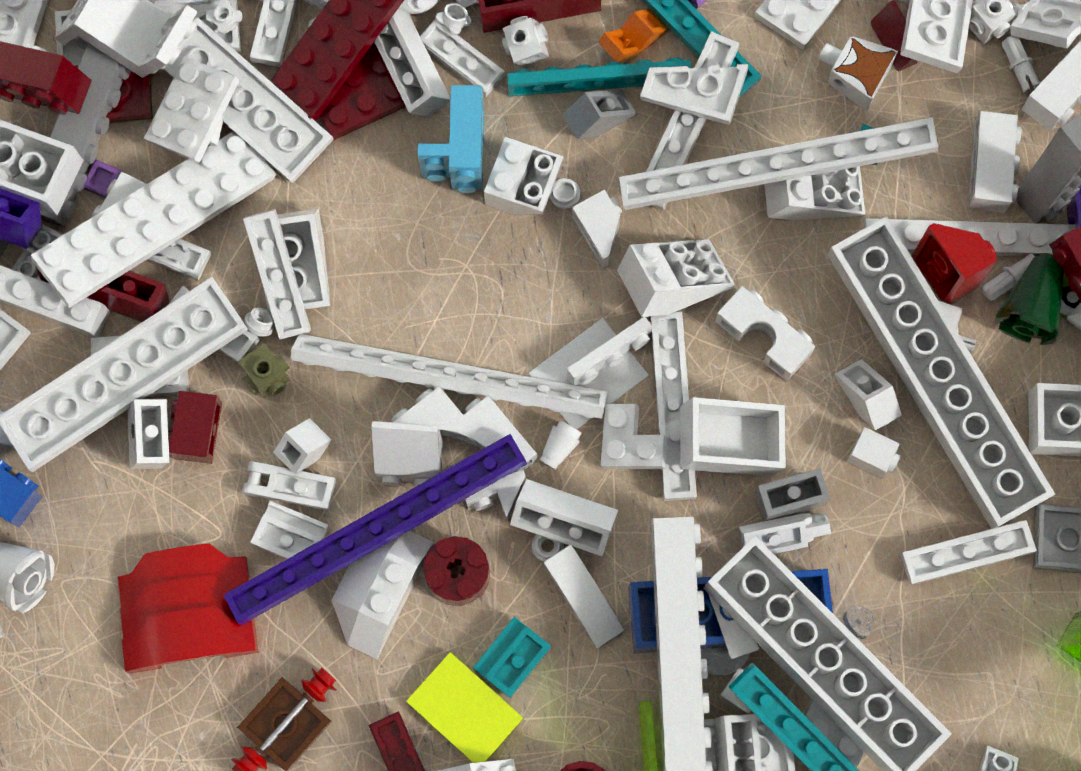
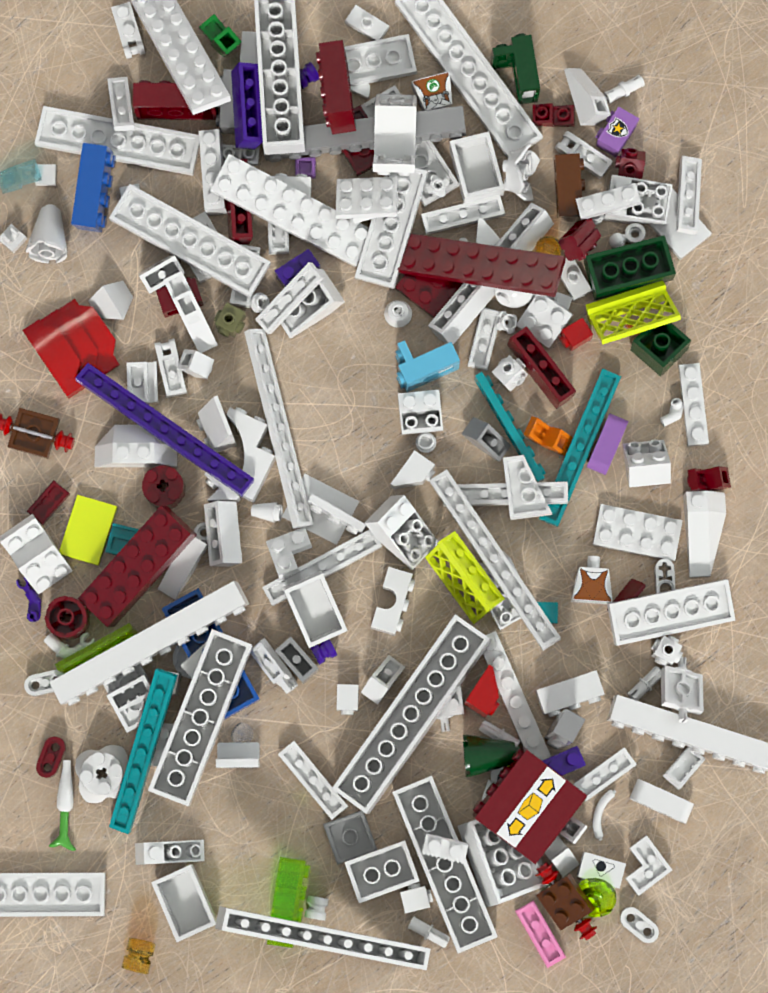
camera: 65 degrees right, 5 degrees up
(150, 524) = (112, 300): none -> white slope
(225, 416) = (190, 312): none -> white slope
(238, 252) = (293, 267): none -> dark purple brick
(369, 150) = (399, 317): none -> white cone
(557, 658) = (137, 566): none -> dark red brick
(779, 203) = (474, 578): none -> neon yellow fence
(795, 456) = (324, 650): none -> dark purple wheel
(892, 637) = (238, 755): none -> white panel

